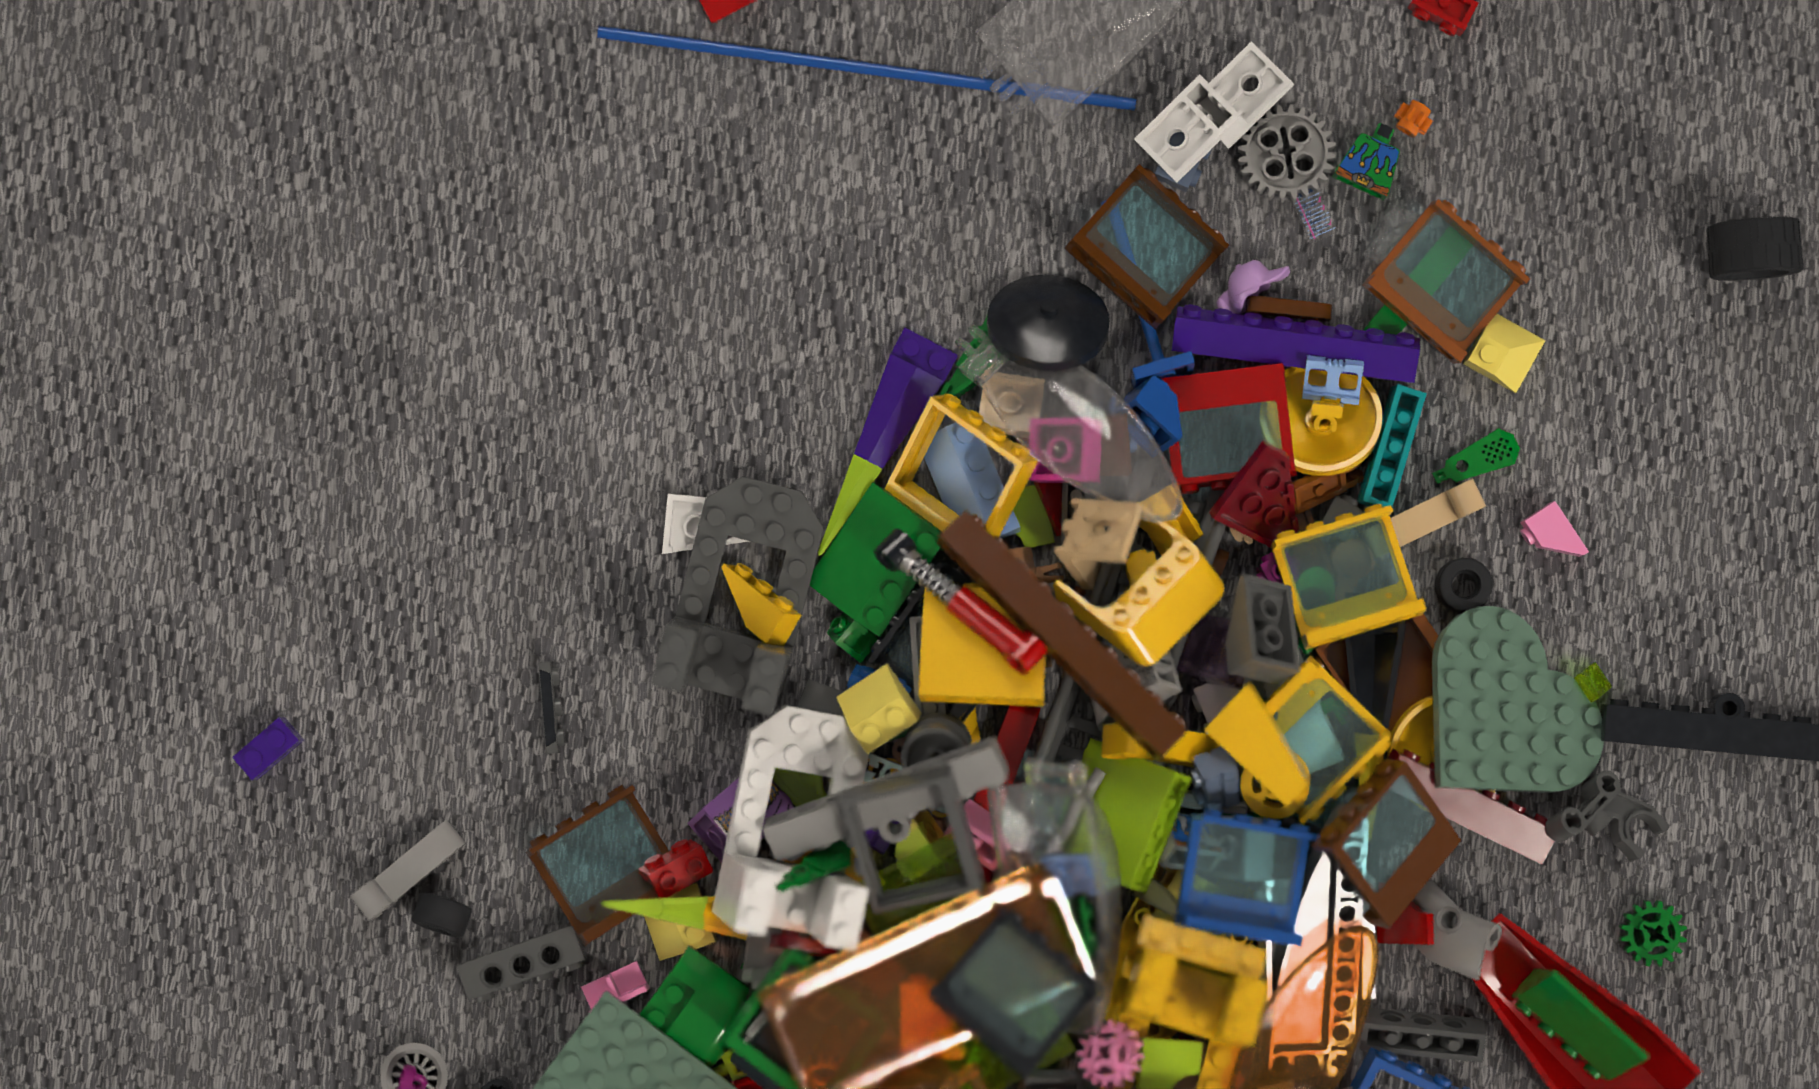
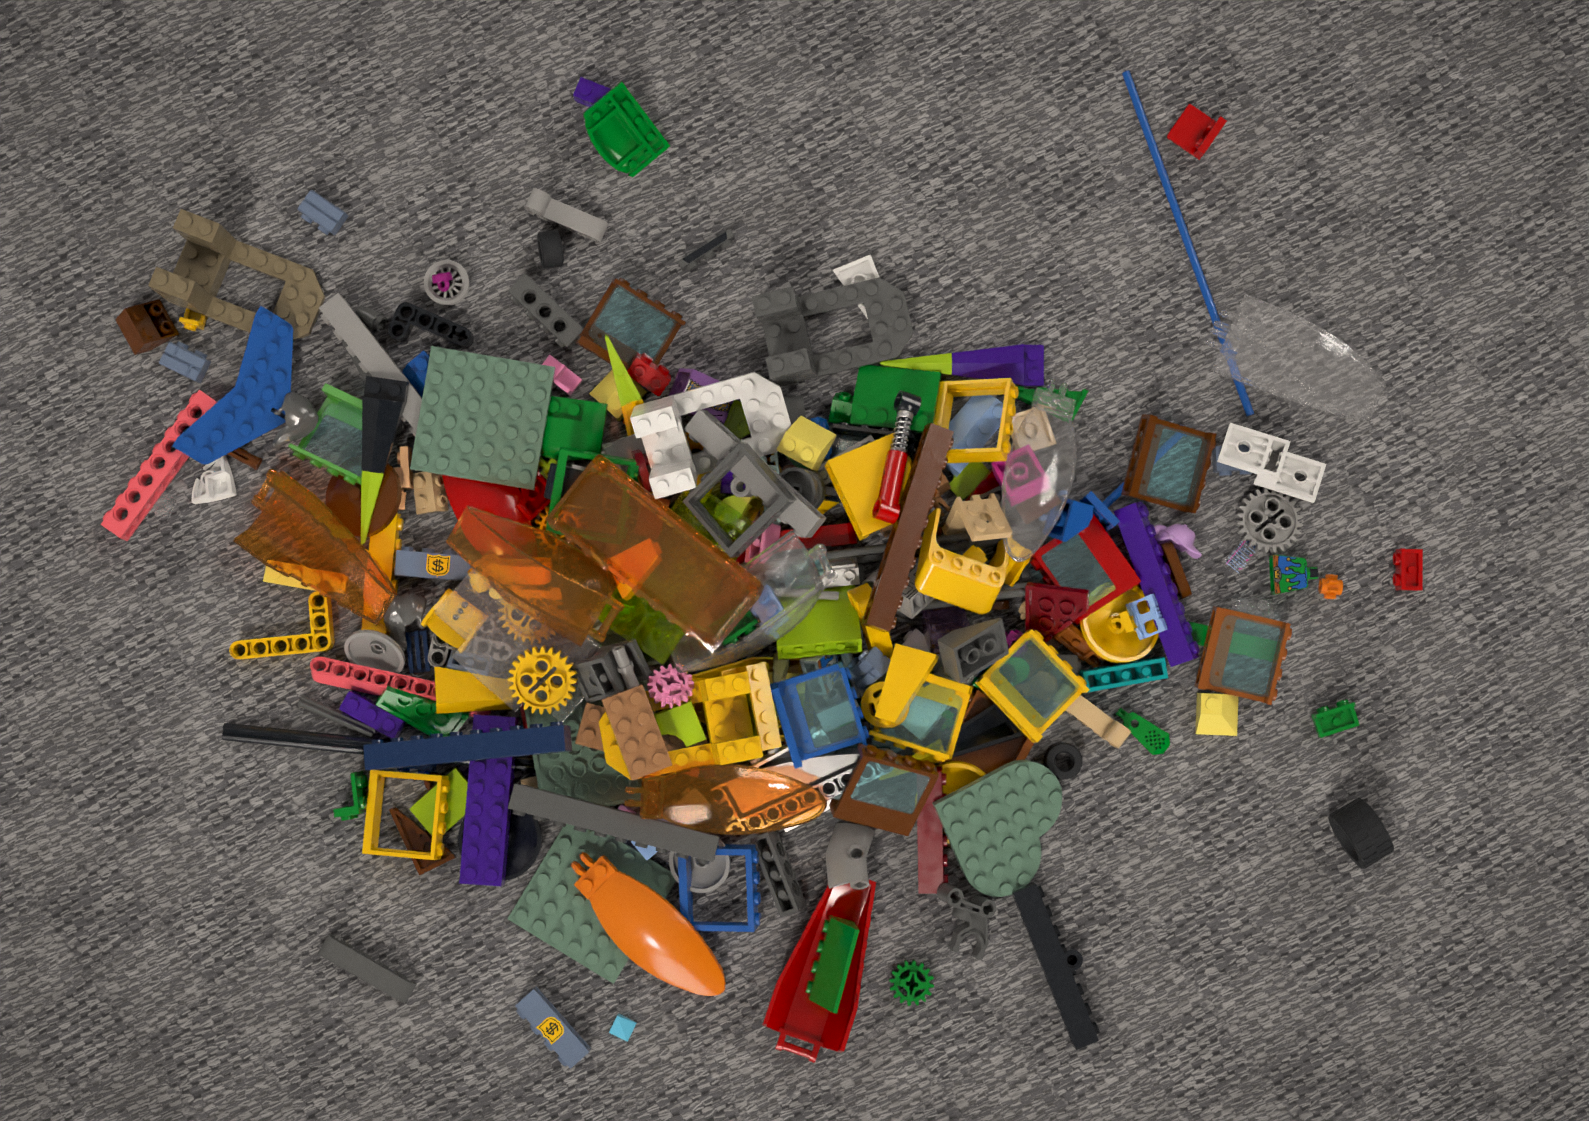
camera: 60 degrees right, 0 degrees up
(335, 737) = (623, 131): none -> green slope
(762, 610) = (829, 345): yellow slope -> none
(817, 865) = (693, 453): green piece -> none
(1014, 992) = (678, 607): clear light blue panel -> none
(1048, 322) = (1091, 427): black dish -> none
(1071, 744) = (847, 571): none -> white window
(1411, 928) = (839, 831): red tile -> none
(1552, 531) = (1123, 798): bright pink slope -> none
(1588, 202) = (1335, 719): none -> green bracket
(1593, 682) = (1044, 869): clear neon green tile -> none

